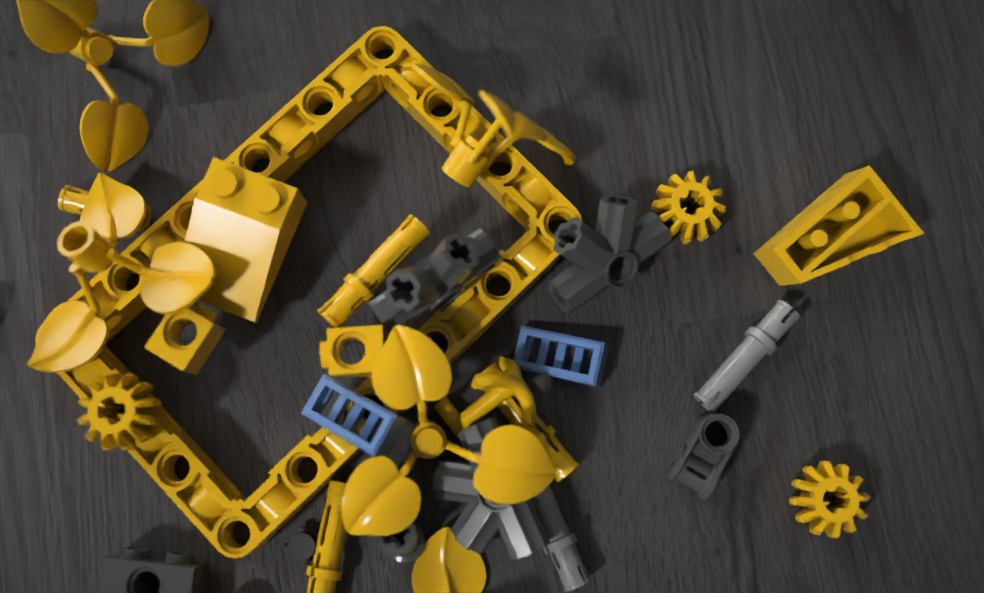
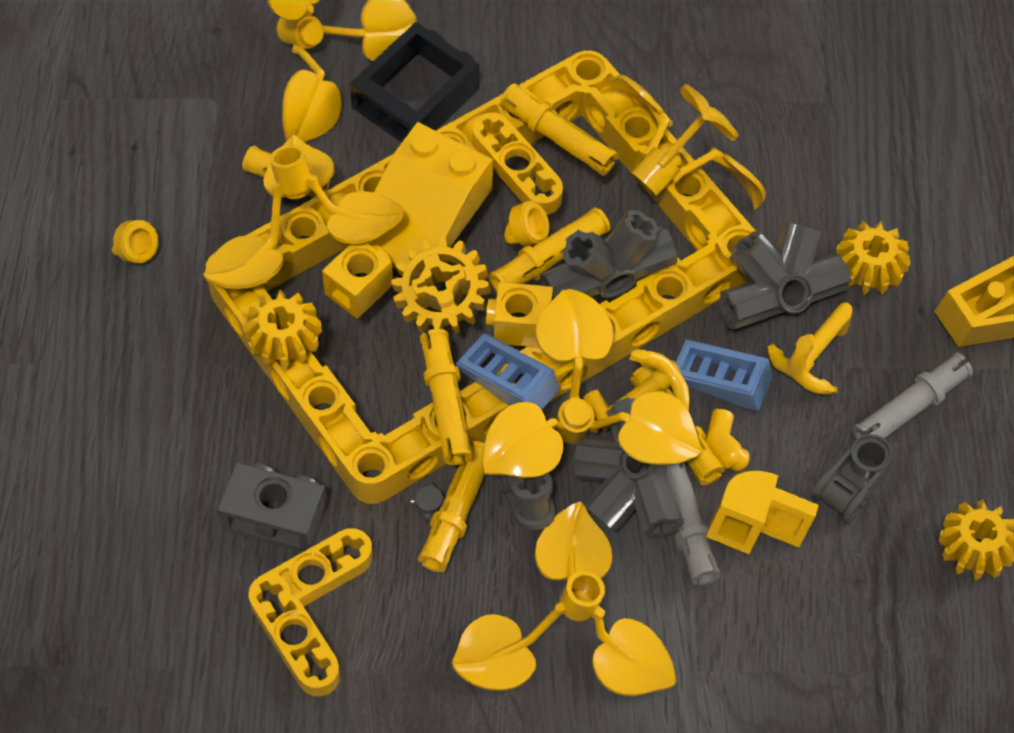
camera: 10 degrees right, 20 degrees down
(245, 107) = (393, 114): none -> black window
(260, 321) = (459, 280): none -> yellow gear
(296, 455) = (443, 382): none -> yellow pin
(313, 143) = (514, 145): none -> yellow beam
(345, 119) = (544, 120): none -> yellow pin
(347, 245) = (527, 224): none -> yellow tile
(571, 435) = (722, 444): none -> yellow arm
(611, 508) = (755, 506): none -> yellow brick
(639, 335) = (809, 348): none -> yellow piece

